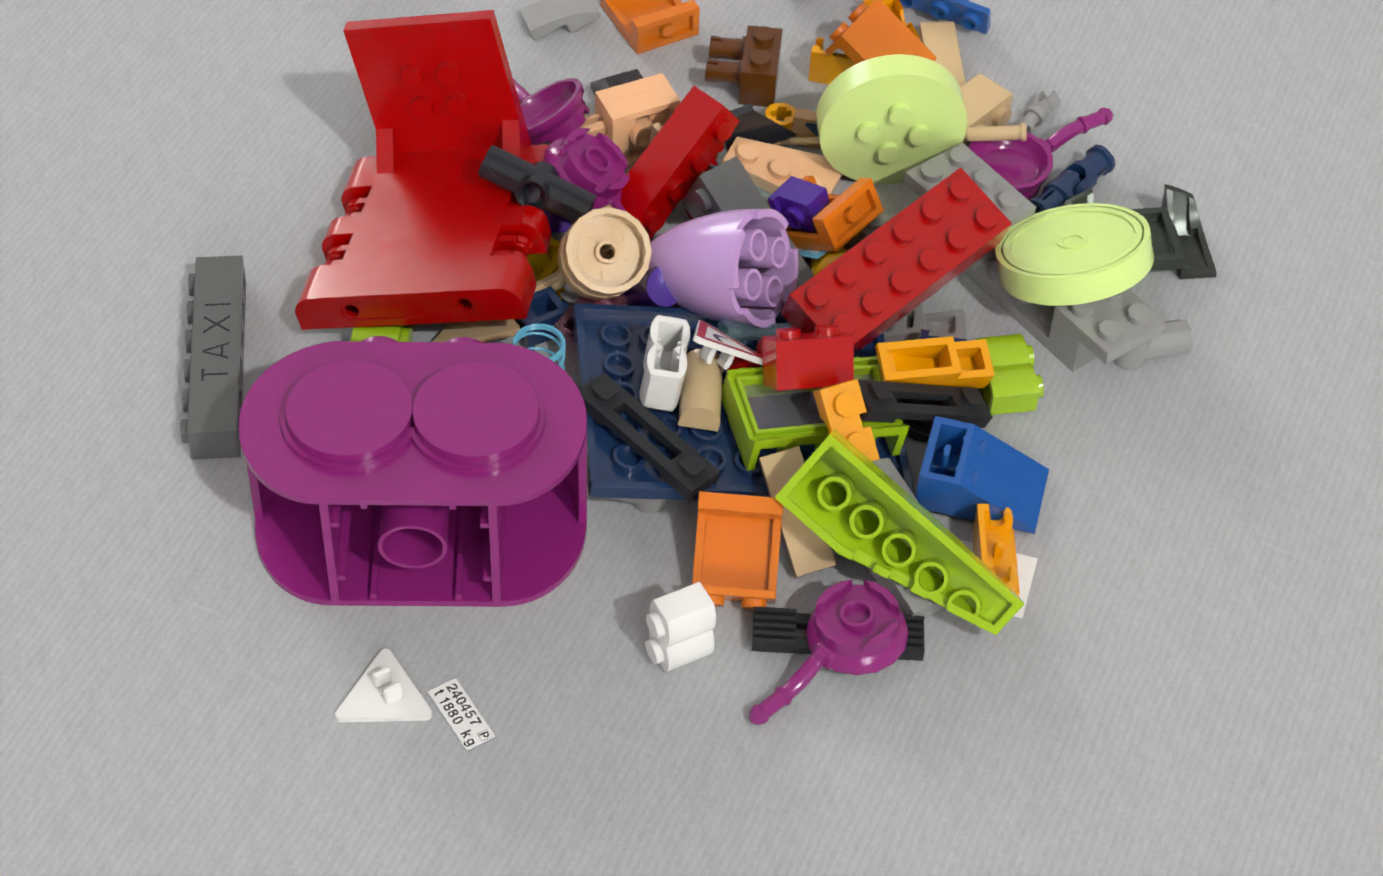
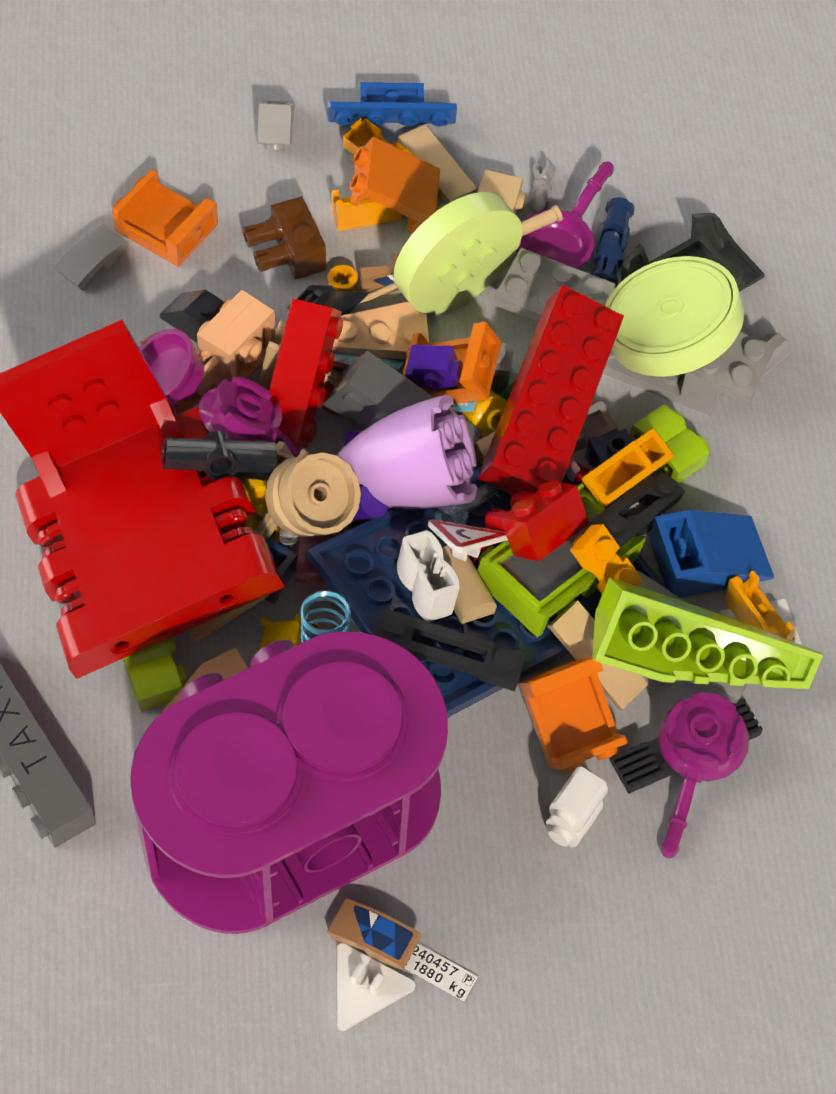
camera: 30 degrees left, 10 degrees up
(422, 652) = (375, 933): none -> slope

